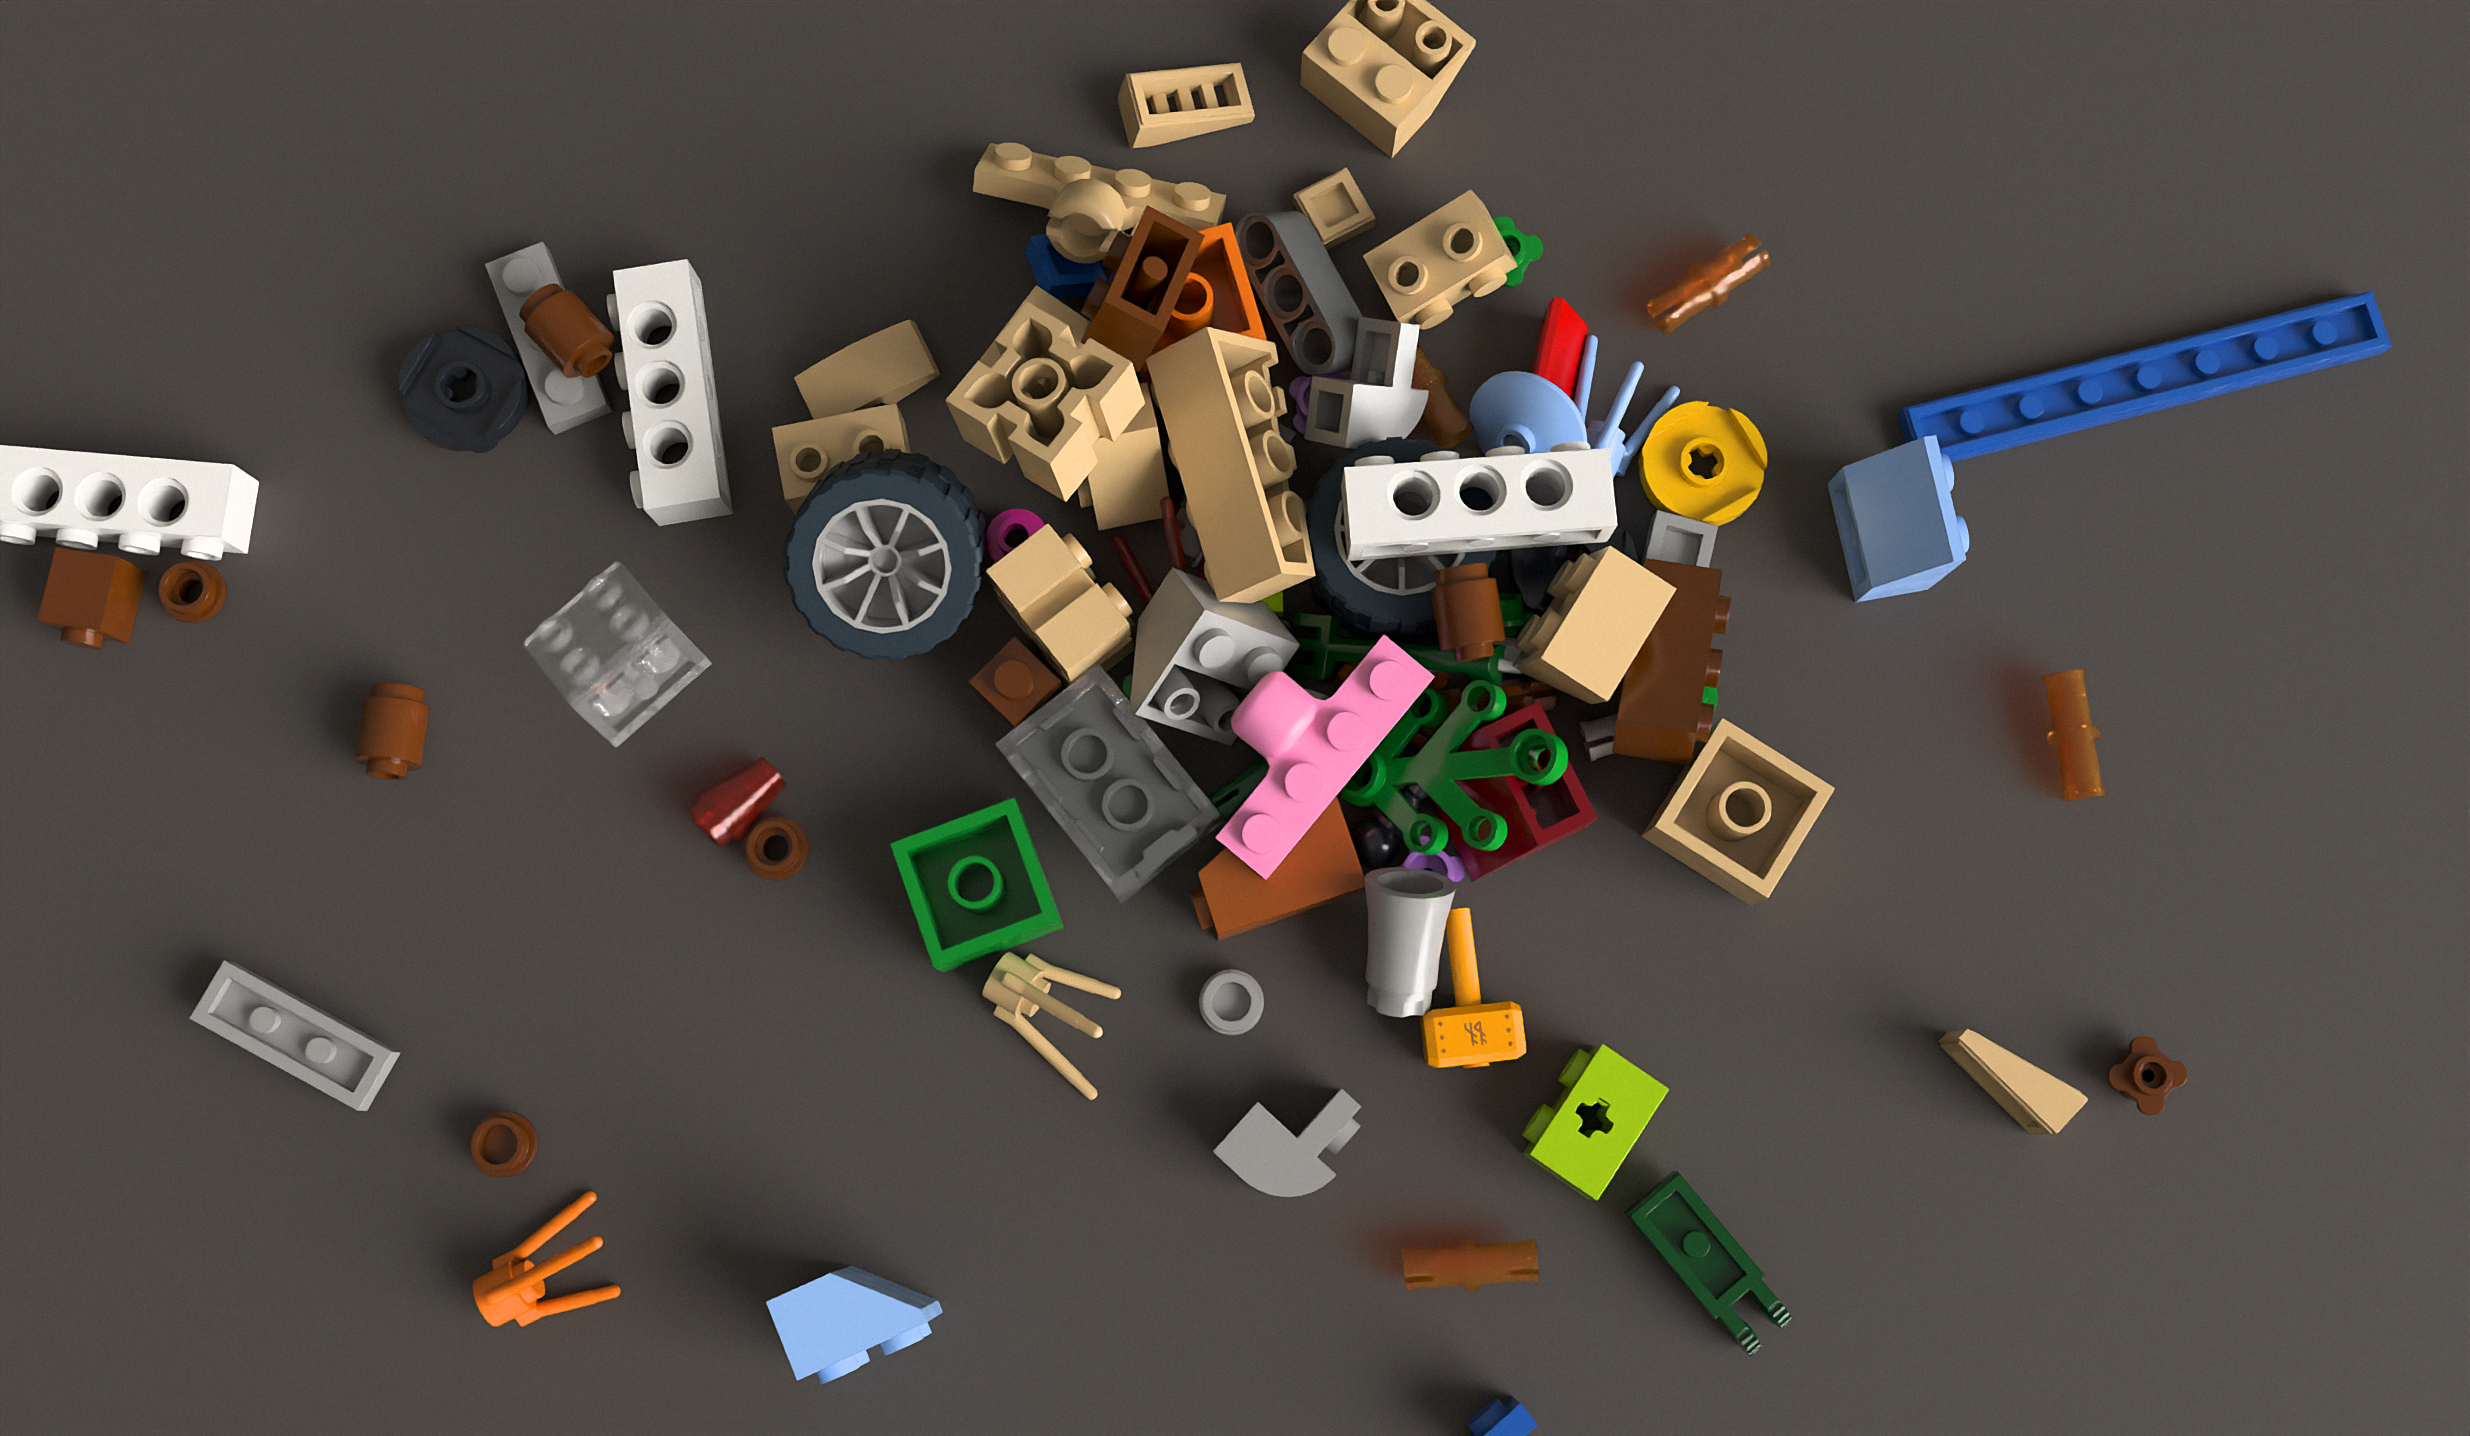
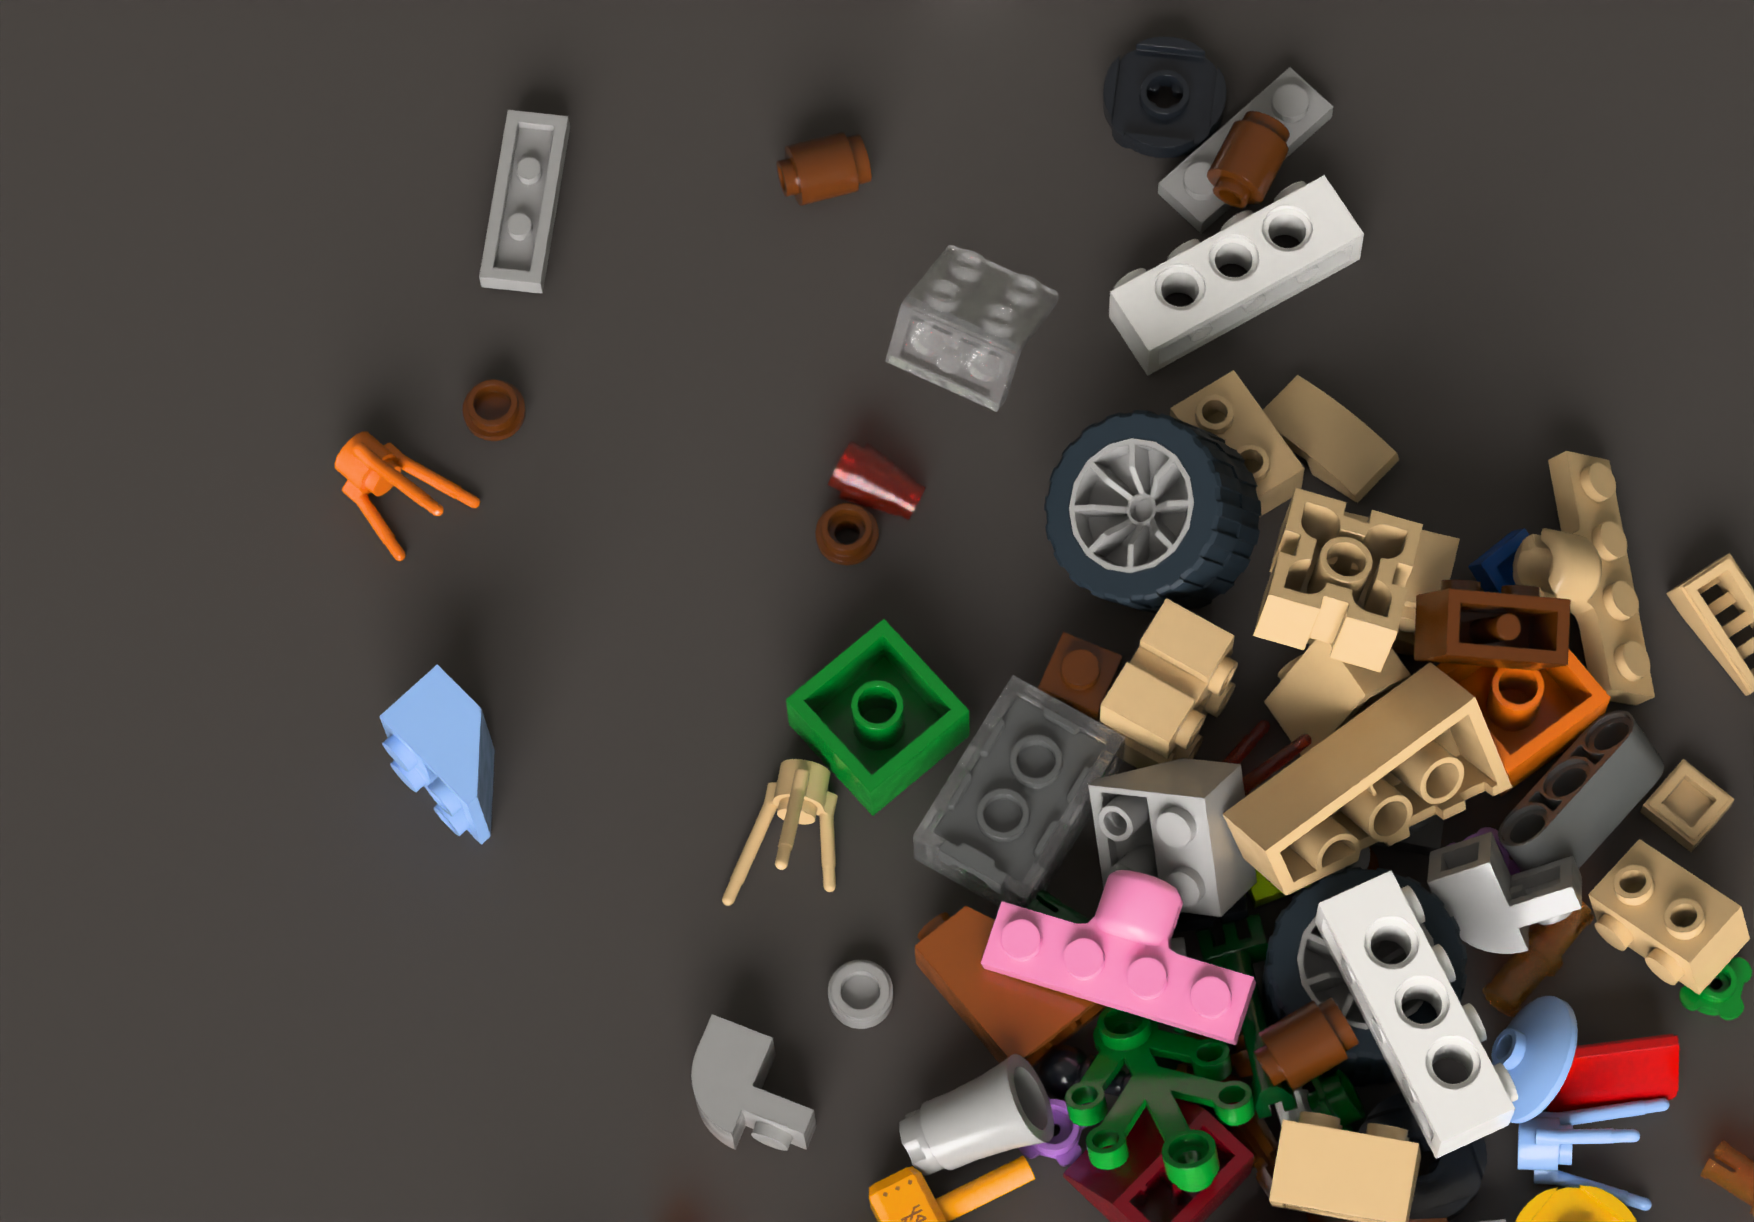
camera: 75 degrees right, 10 degrees down
(1005, 523) = (1239, 618): dark pink plate -> none

